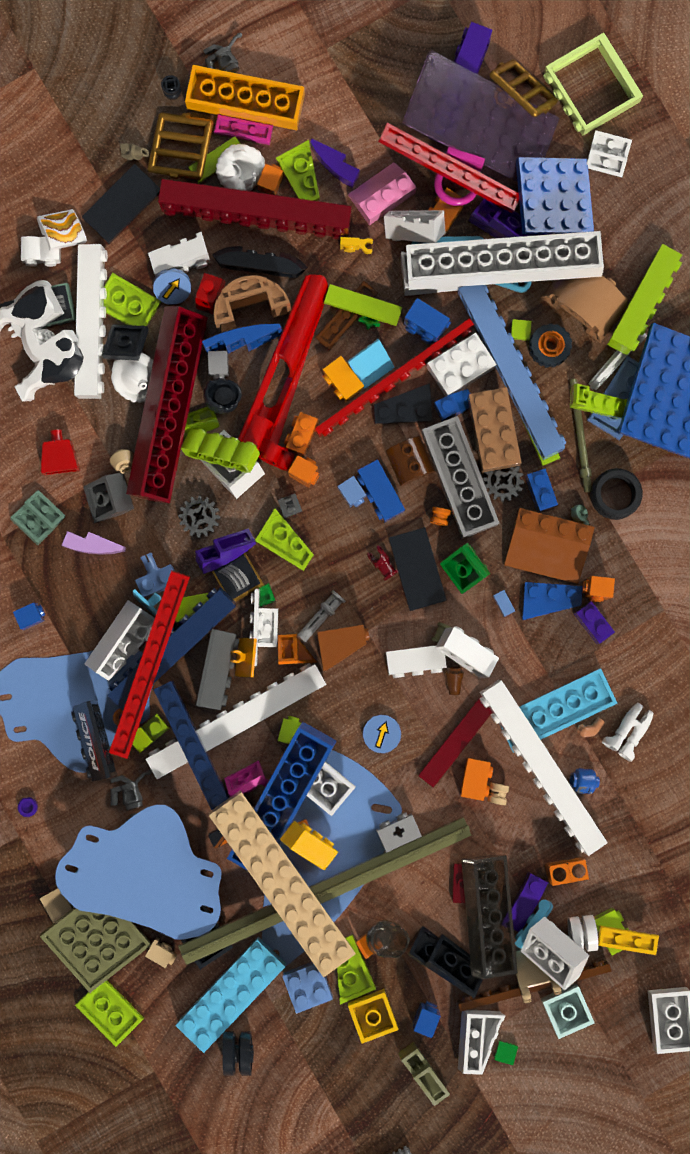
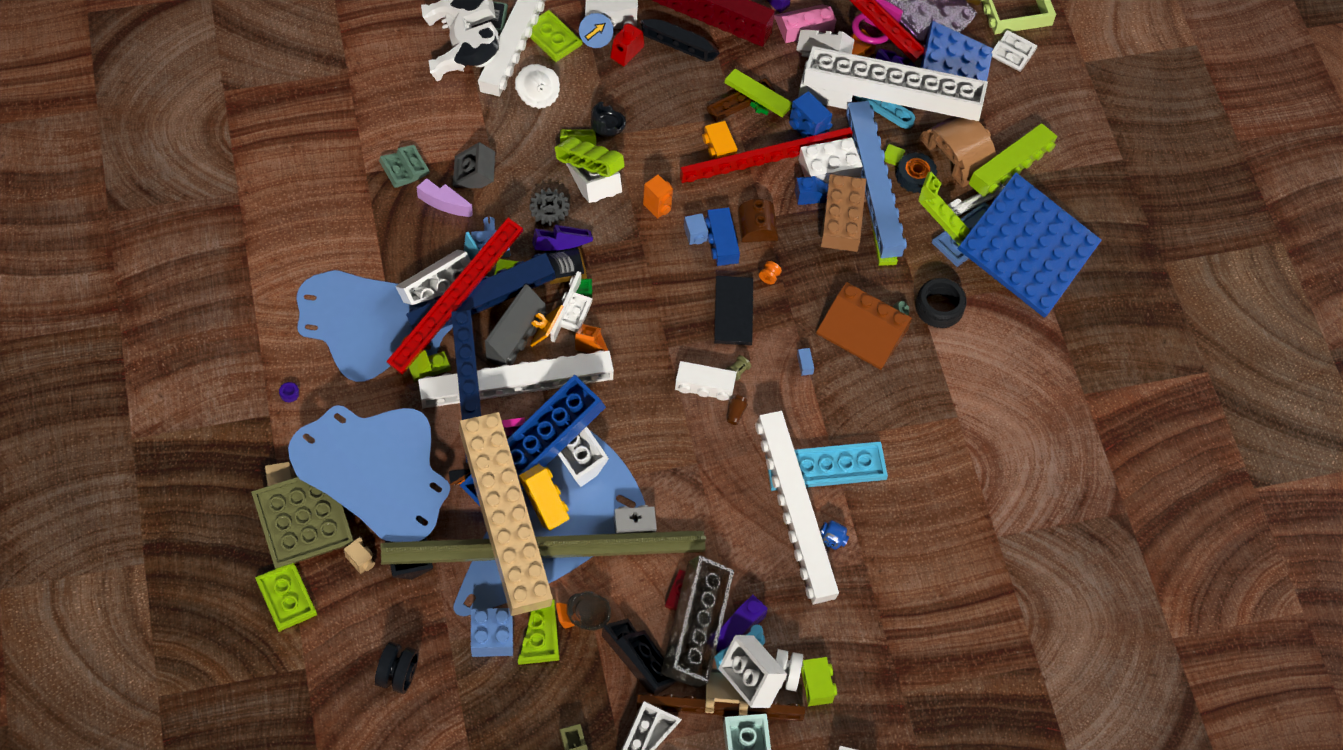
camera: 15 degrees right, 25 degrees down
(29, 615) = (362, 236): blue brick -> none
(58, 455) = (443, 124): red torso -> none
(94, 740) = (377, 348): black slope -> none
(122, 461) = (499, 142): tan cone -> none
(125, 342) = (538, 57): black tile -> none
(130, 792) = (387, 404): dark grey piece -> none
(167, 404) = (555, 111): dark red brick -> none
(218, 364) = (614, 96): light grey brick -> none
(230, 994) = (413, 613): medium azure brick -> none
(247, 292) = (659, 49): medium nougat cylinder -> none
(250, 336) = (643, 81): blue slope -> none
(266, 424) = (686, 105): red panel -> none
(284, 542) = (617, 248): lime wing -> none
(290, 505) = (635, 225): dark grey tile -> none
(302, 433) = (668, 167): orange brick -> none
(327, 608) = (637, 315): light grey pin -> none
(340, 644) = (640, 342): dark orange slope -> none
(351, 244) = (766, 48): yellow plate -> none
(371, 363) = (749, 134): medium azure piece -> none
(372, 1016) = (547, 679): yellow brick -> none
(381, 734) = (650, 435): medium blue tile -> none
(383, 564) = (704, 296): dark red piece -> none
(405, 408) = (770, 183): black wing -> none
(426, 1019) = (599, 698): blue brick -> none
(455, 743) = (718, 465): dark red tile -> none
(459, 477) = (799, 246): light grey brick -> none
(465, 568) = (779, 318): green brick -> none
(467, 652) = (756, 384): white brick -> none
(475, 779) = (727, 499): orange brick -> none
(498, 793) = (744, 520): tan wheel -> none
(508, 488) = (837, 263): dark grey gear -> none
(541, 490) = (871, 277): blue brick -> none
(549, 598) = (848, 370): blue wing -> none
(568, 868) = (783, 614): orange piece -> none
(585, 471) = (917, 279): olive bar -> none
(590, 730) = (853, 494): nougat arm -> none
(594, 623) = (886, 401): dark purple brick -> none
(598, 588) = (899, 370): orange brick -> none
(627, 723) = (883, 521): white piece -> none
(628, 940) = (831, 688): yellow tile -> none

